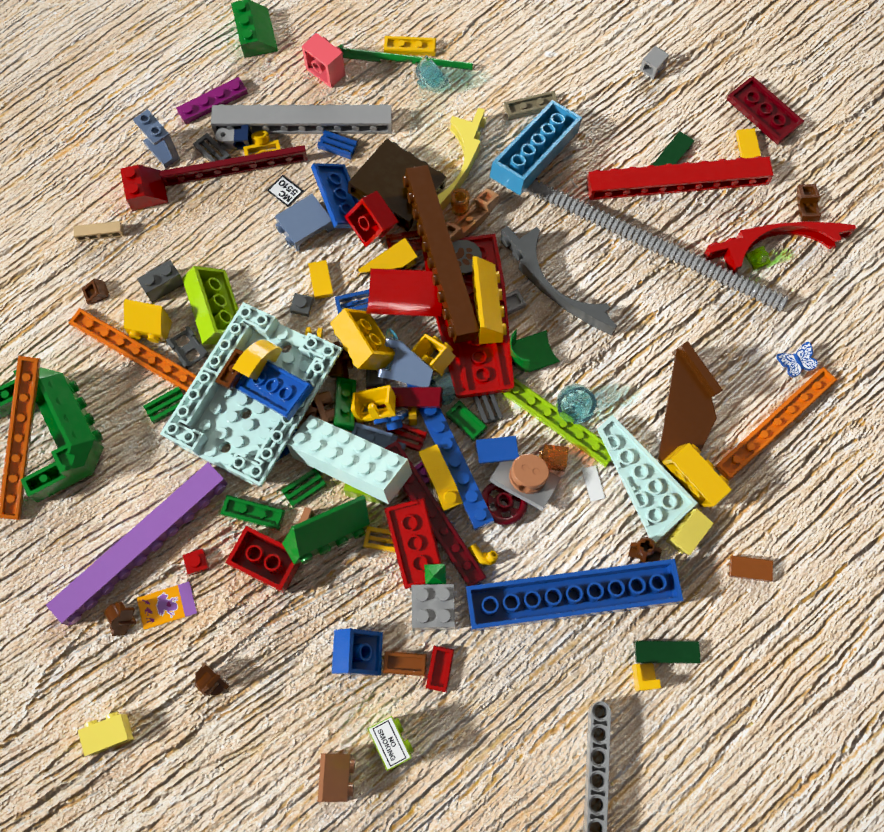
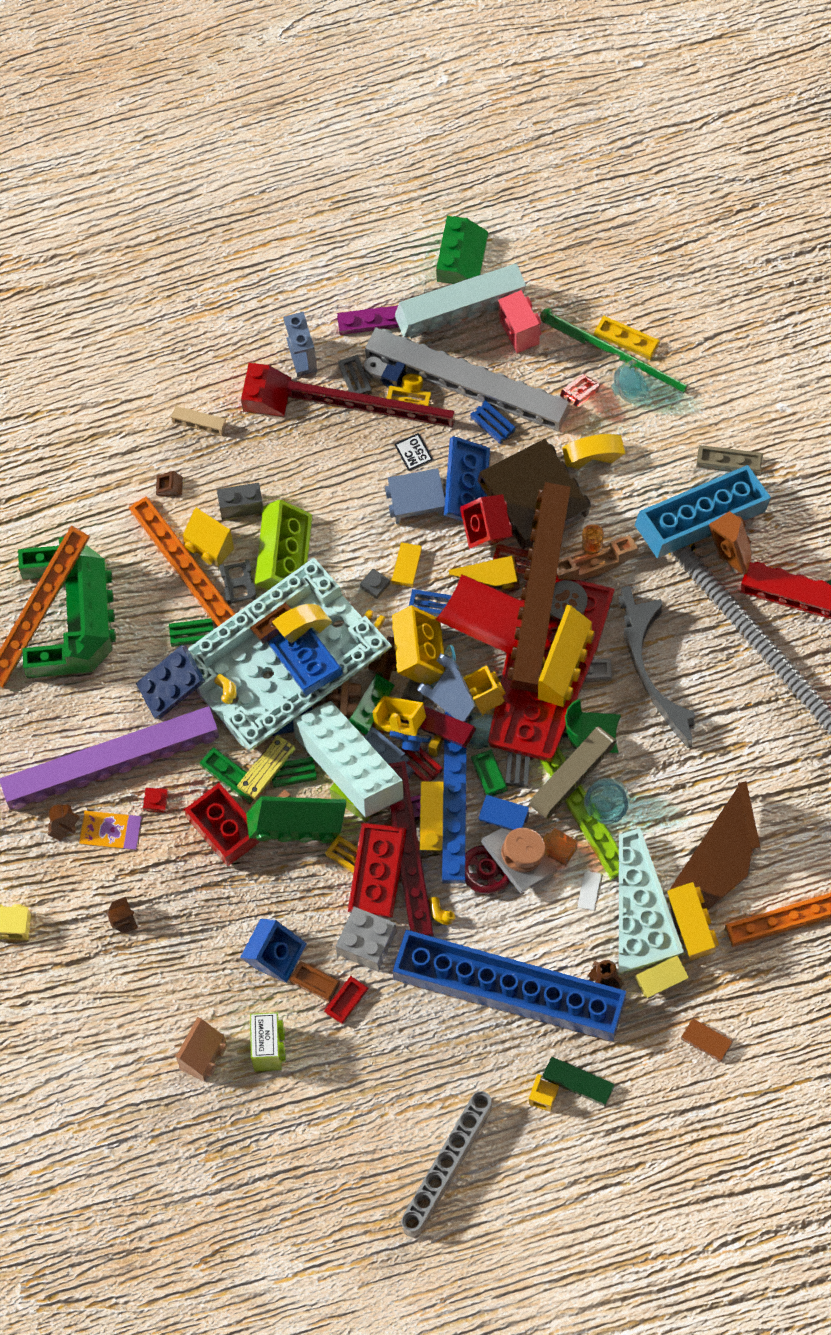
camera: 30 degrees right, 5 degrees down
(165, 455) = (170, 682): none -> dark blue plate
(218, 439) = (228, 687): none -> yellow arm
(268, 61) = (457, 301): none -> light aqua brick
(280, 494) = (266, 767): none -> light yellow tile
(398, 100) = (583, 393): none -> clear red tile
(431, 130) = (596, 447): none -> yellow brick
(435, 574) = (383, 907): green slope -> none
(469, 136) = (641, 469): light yellow slope -> none
(536, 392) = (572, 772): none -> dark tan beam
(570, 160) = (732, 541): none -> dark orange slope

